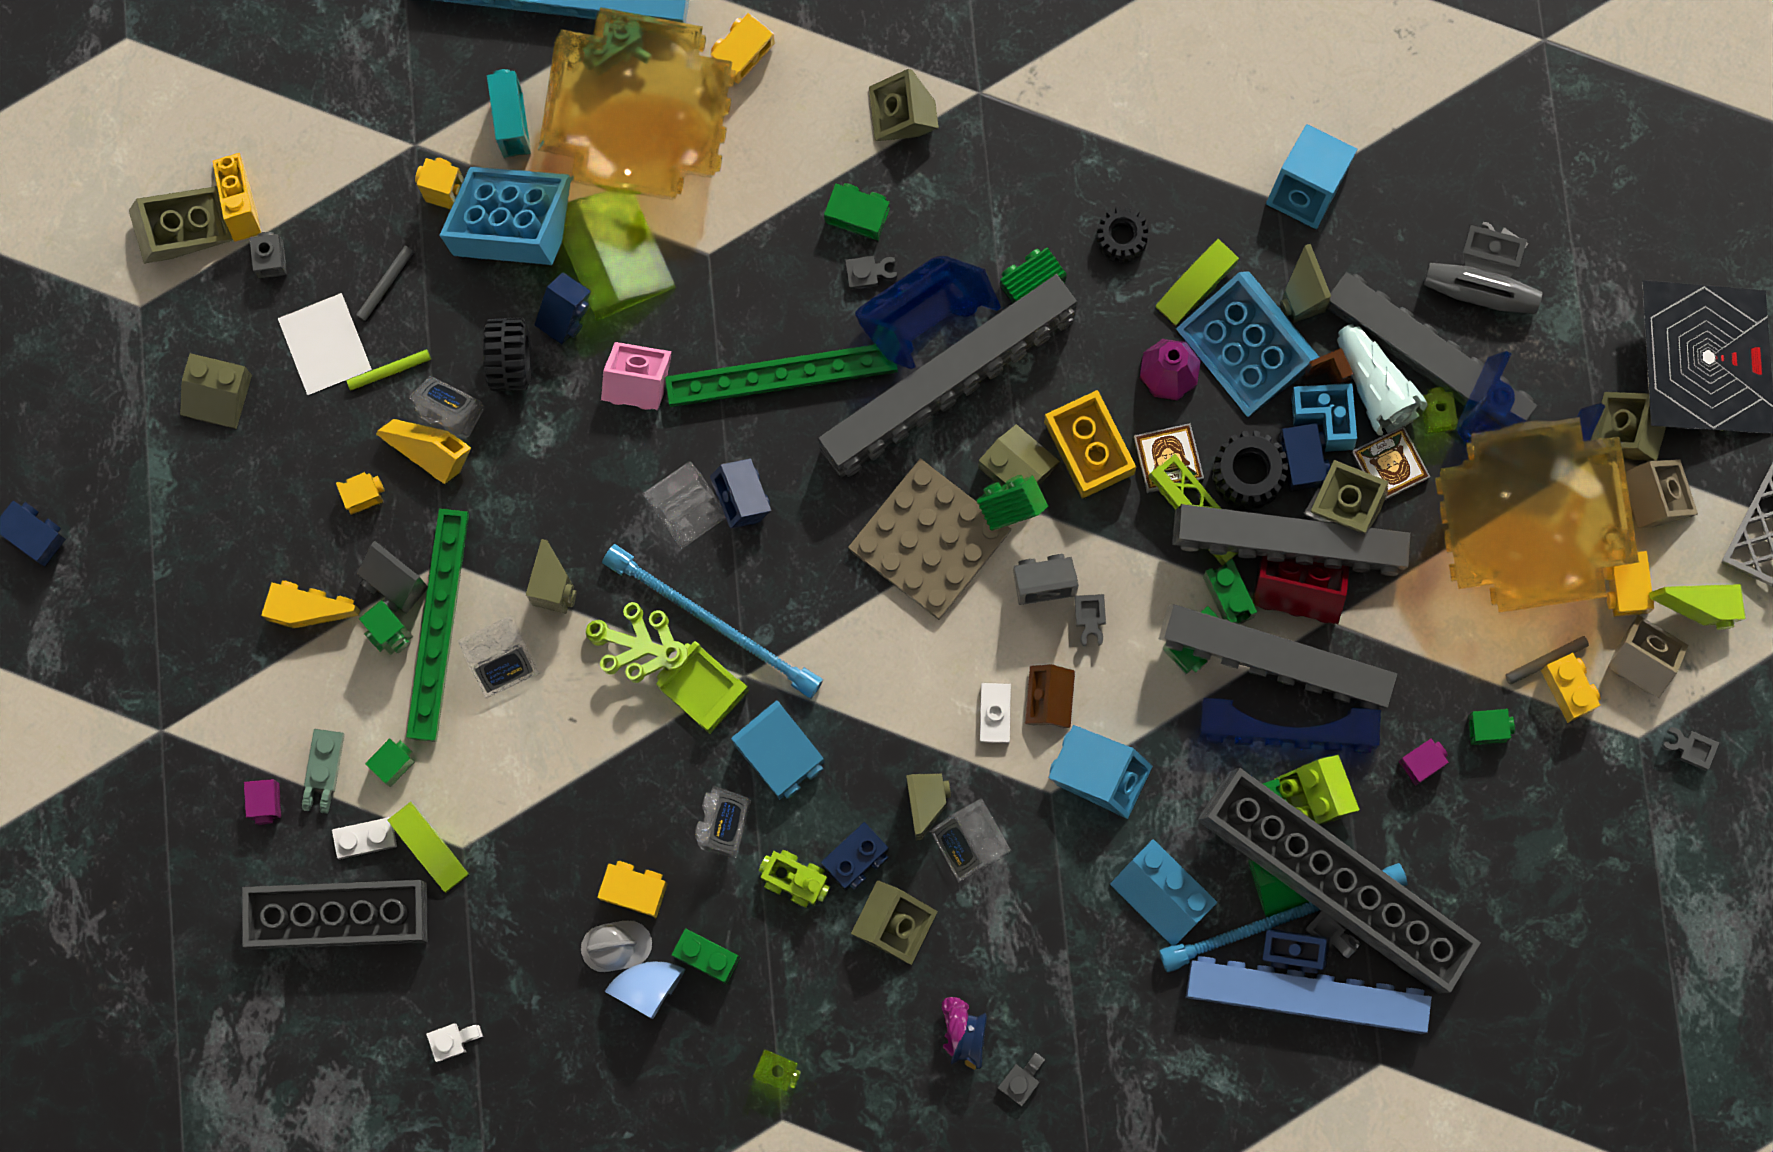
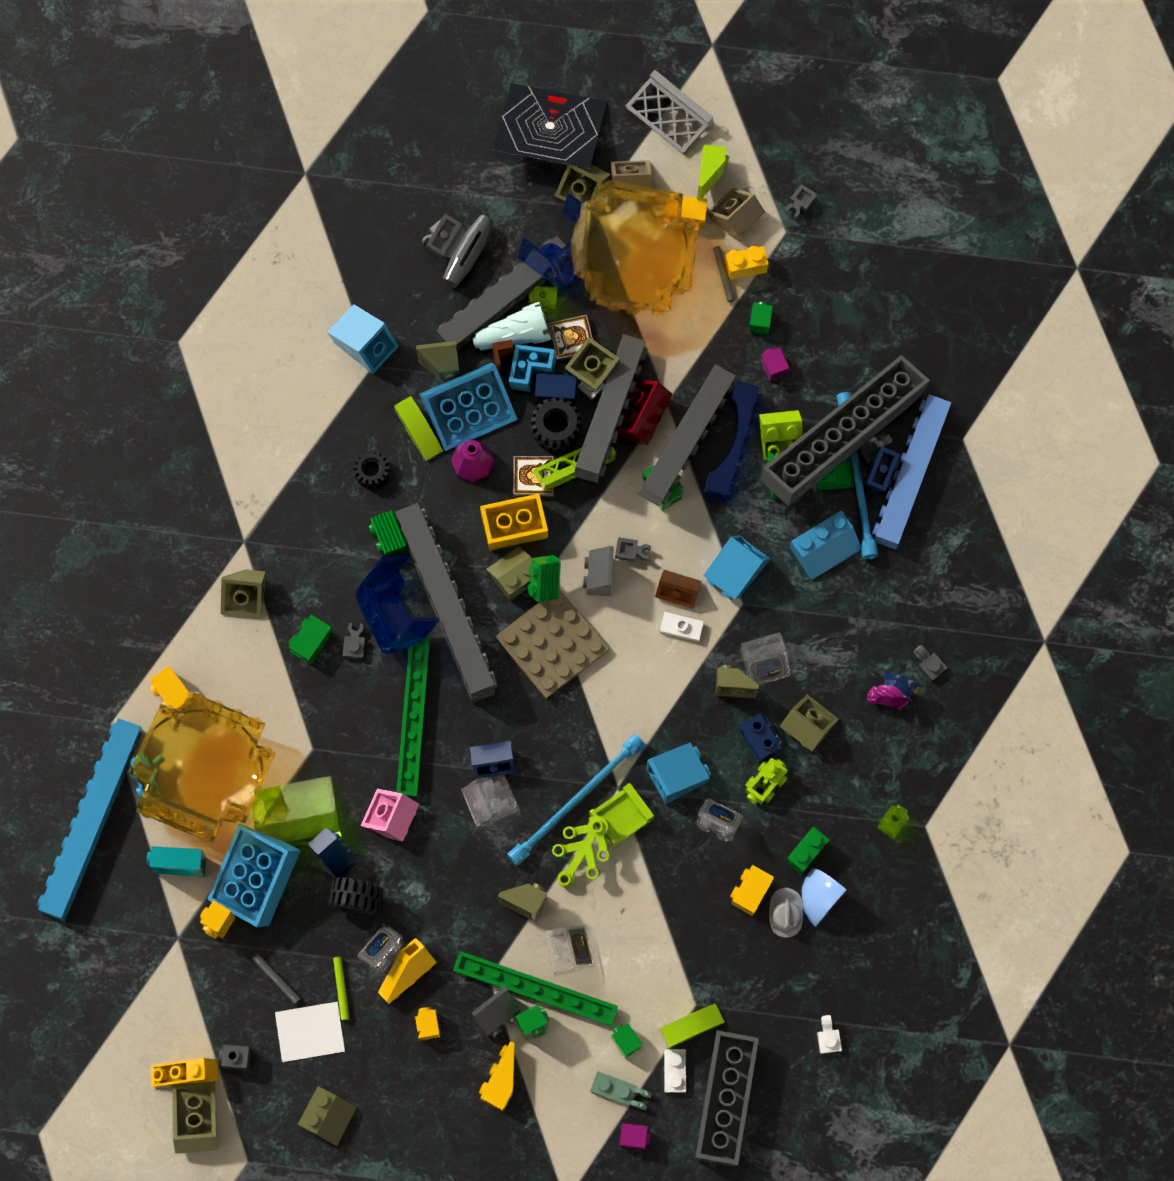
camera: 85 degrees left, 5 degrees down
(1230, 593) = (636, 457): green brick -> none

